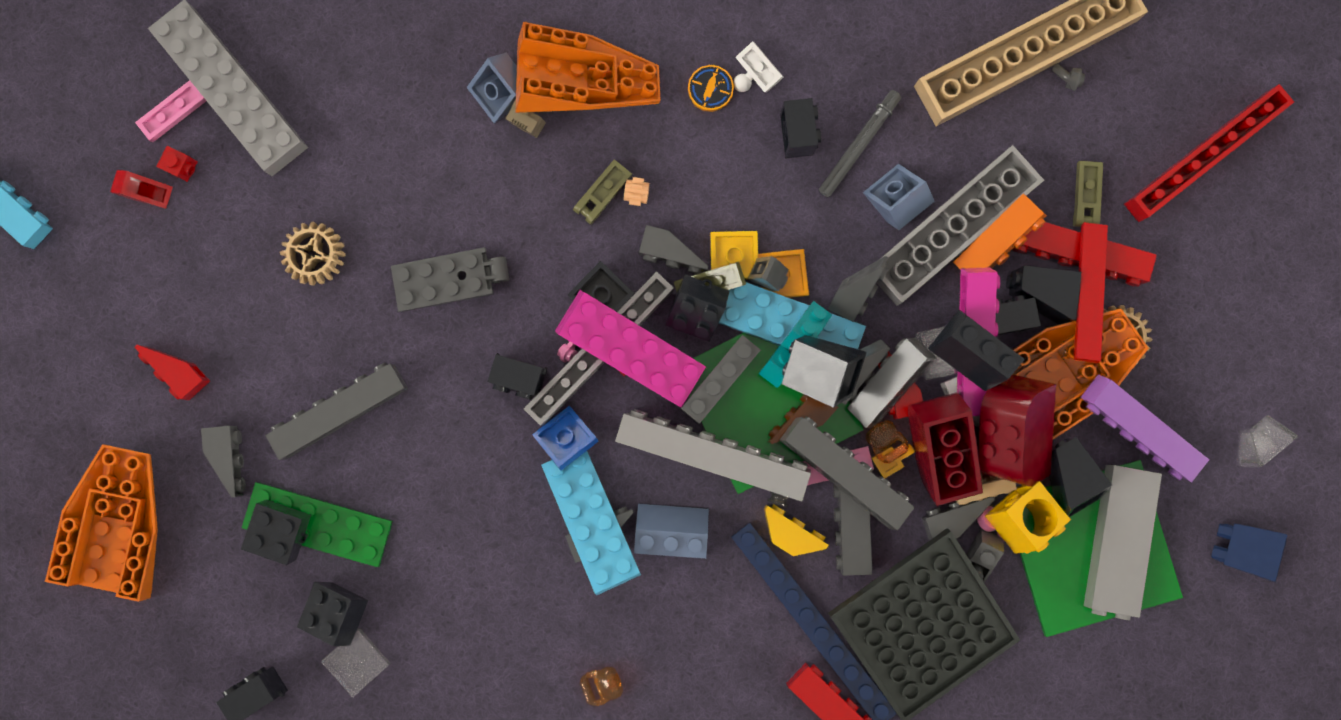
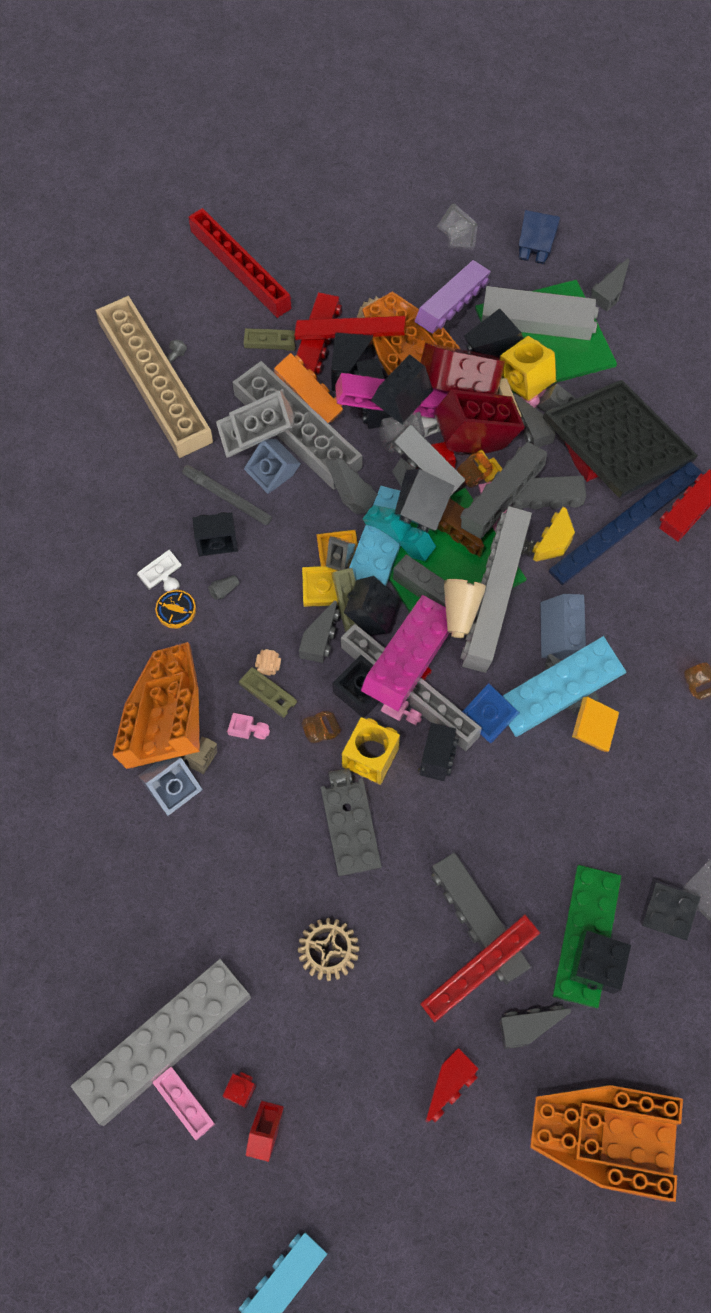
camera: 90 degrees left, 20 degrees down
(280, 408) = (480, 968): none -> red tile
(514, 282) = (370, 768): none -> yellow brick
(546, 556) = (595, 724): none -> light orange tile
(557, 245) = (316, 730): none -> clear orange piece
(562, 164) = (243, 725): none -> bright pink plate
(681, 409) = (461, 605): none -> tan cone
(735, 140) = (222, 587): none -> dark grey cone
(944, 173) = (255, 423): none -> light grey slope
(1160, 638) = (609, 290): none -> dark grey slope

